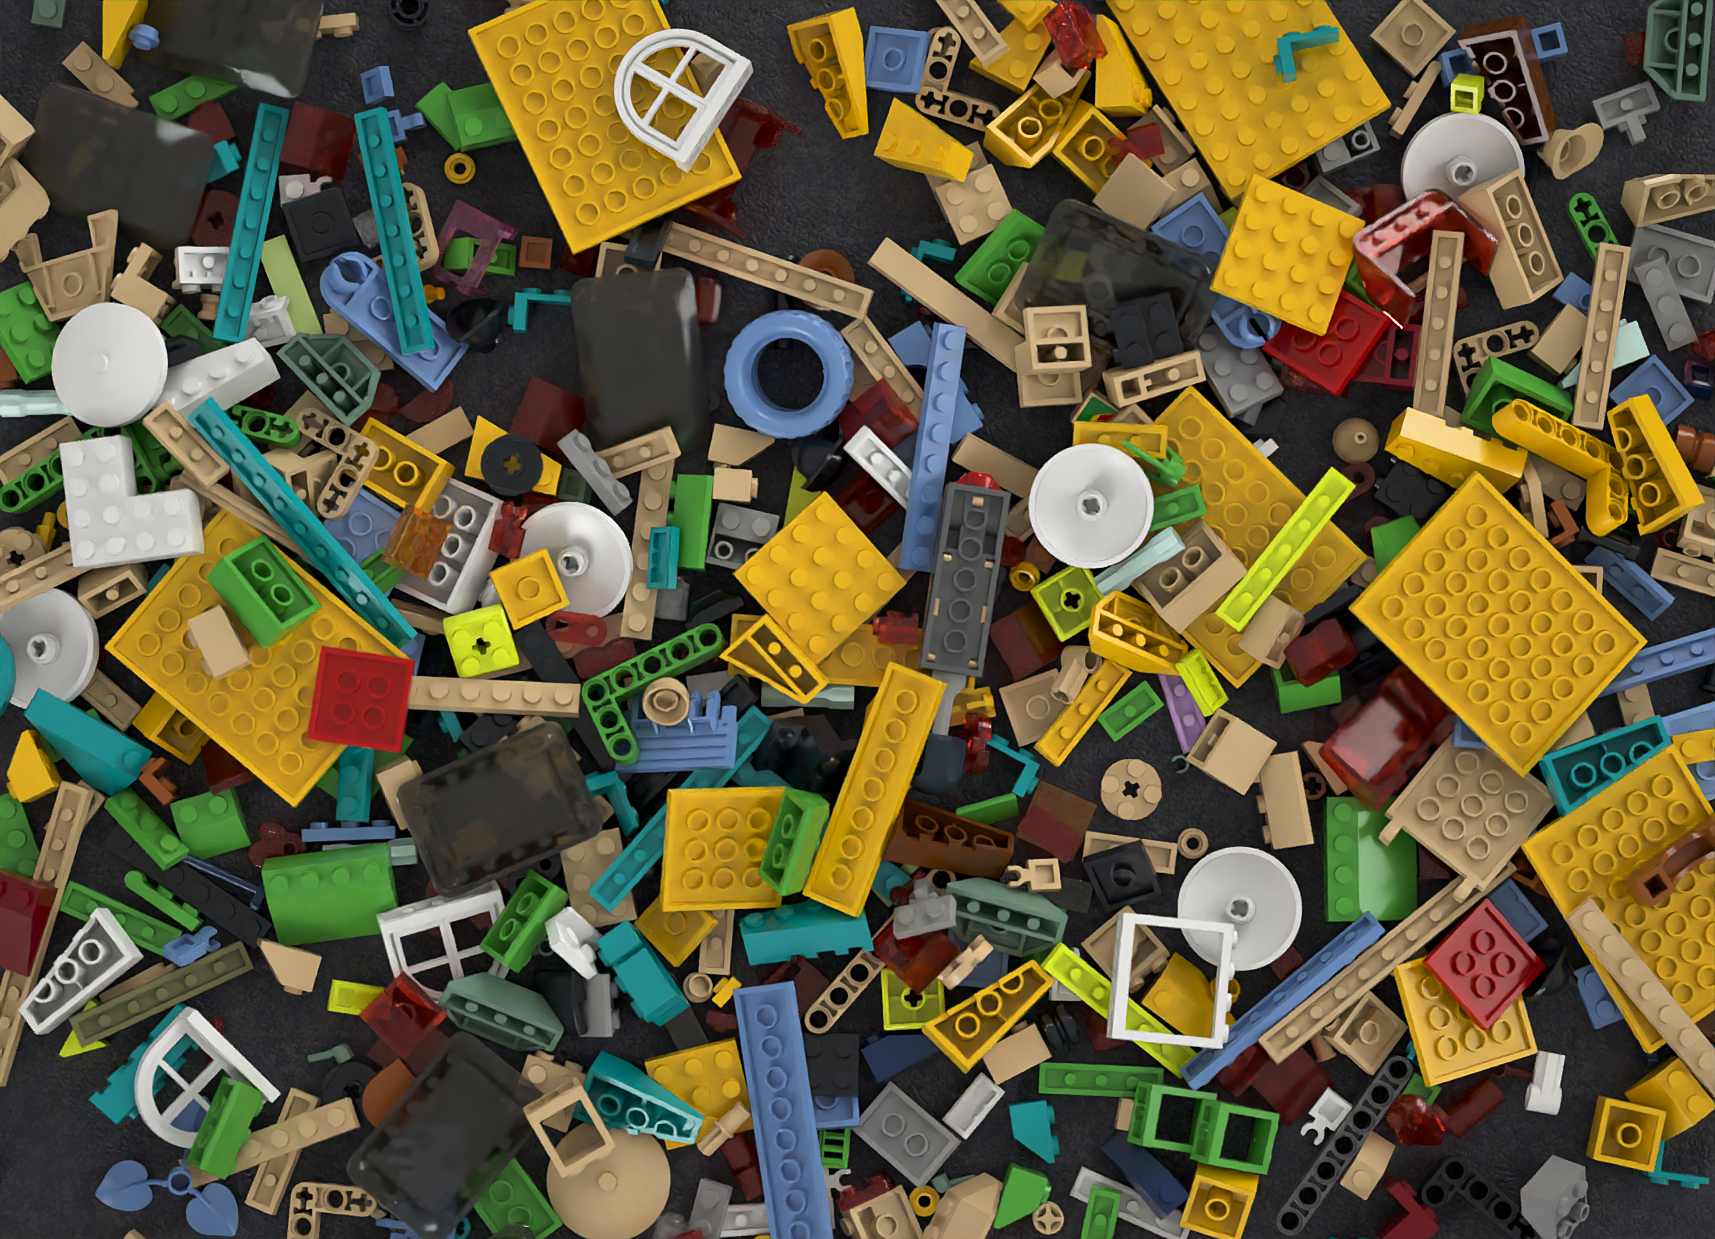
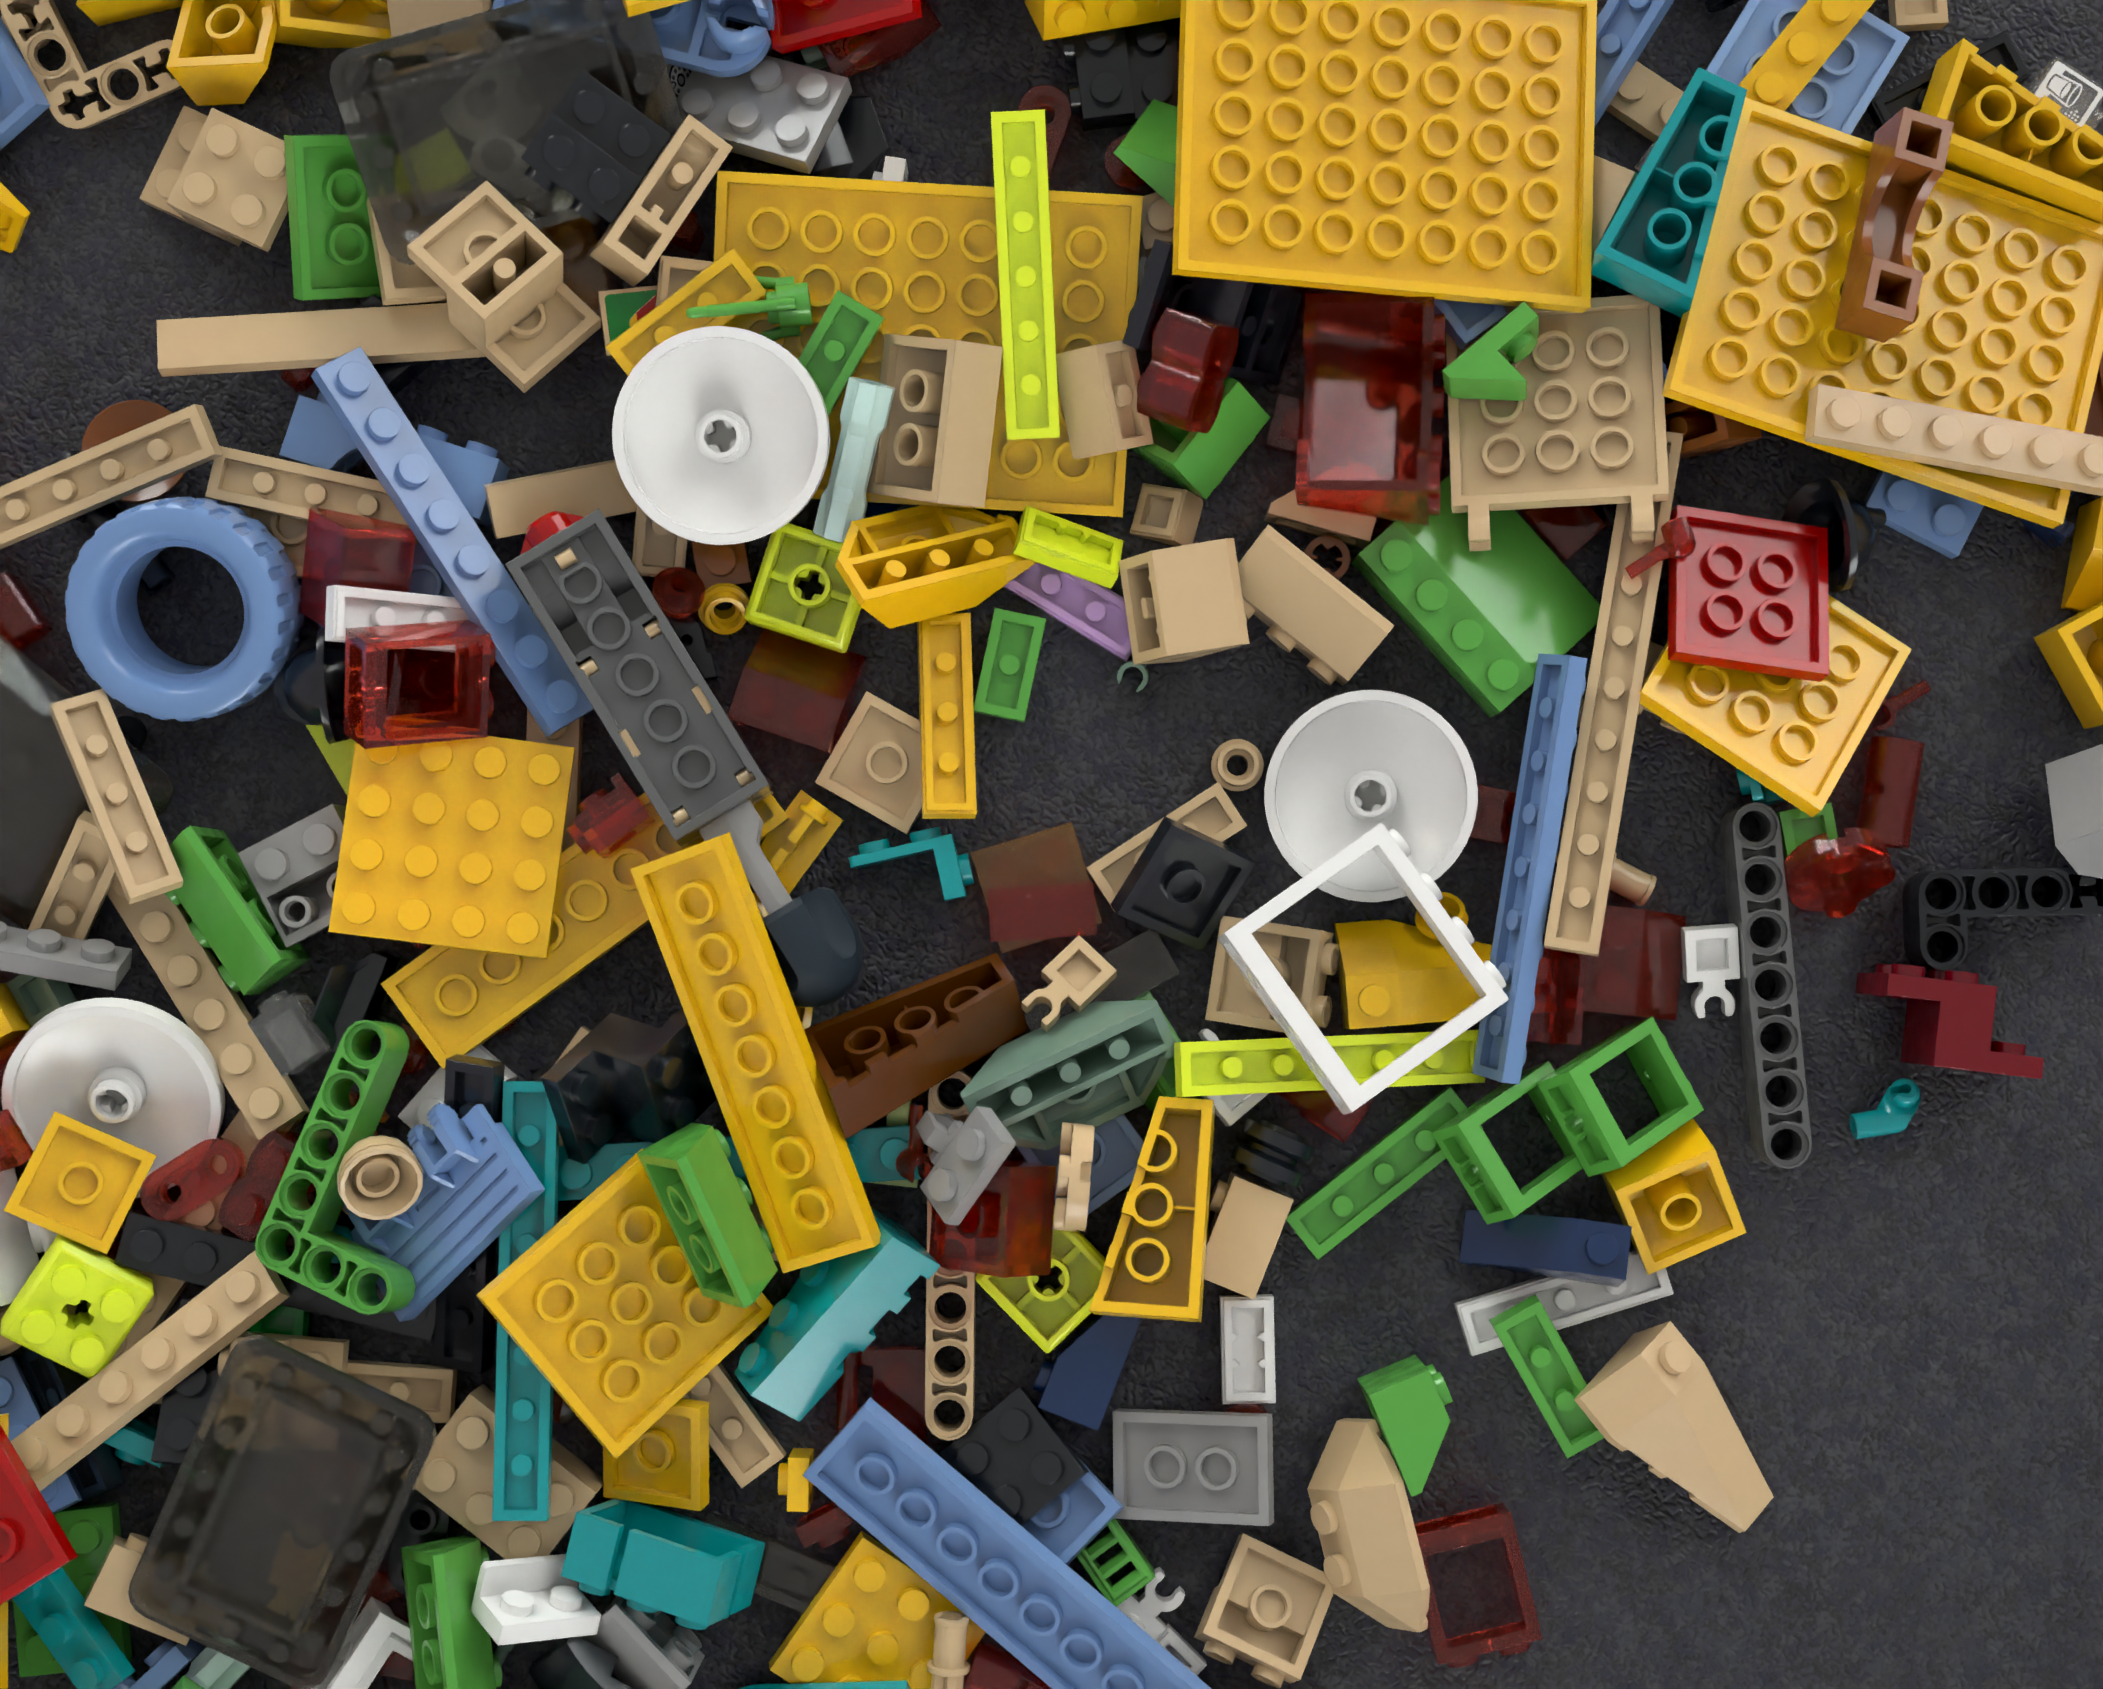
camera: 30 degrees left, 0 degrees up
(616, 792) = (394, 1362): teal bracket -> none
(663, 558) = (224, 990): teal plate -> none
(691, 433) = (116, 796): none -> tan plate
(697, 987) = (758, 1507): tan plate -> none
(734, 486) = (239, 815): tan brick -> none
(736, 446) = (207, 762): tan slope -> none
(777, 660) = (481, 995): yellow wedge -> none
(831, 696) = (549, 1024): light aqua axle -> none
(847, 482) = (367, 684): none -> clear red window
(853, 1197) = (1196, 1605): clear red plate -> none
(920, 145) = (105, 166): yellow wedge -> none
(927, 1191) = (1287, 1511): yellow plate -> none
(938, 251) = (249, 291): teal bracket -> none
(941, 1182) = (1293, 1484): sand green hand -> none
(976, 733) = (833, 863): clear red plate -> none
(991, 810) = (940, 946): bright green slope -> none
(1032, 1127) = (1348, 1313): teal slope -> none
(1050, 1221) = (1477, 1418): tan wheel -> none
(1076, 665) = (889, 665): tan piece -> none
(1124, 1113) = (1451, 1191): tan plate -> none
(1147, 796) = (1083, 738): tan plate -> none
(1258, 704) = (1166, 515): none -> tan slope
(1355, 440) = (999, 71): tan helmet -> none
(1365, 1032) = (1671, 815): tan plate -> none
(1367, 1166) = (1824, 986): tan slope -> none
(1452, 763) = (1485, 366): none -> bright green slope
(1470, 915) = (1678, 543): none -> clear red hand
(1517, 910) = (1727, 488): medium blue plate -> none
(1544, 1091) = (1961, 690): white piece -> none

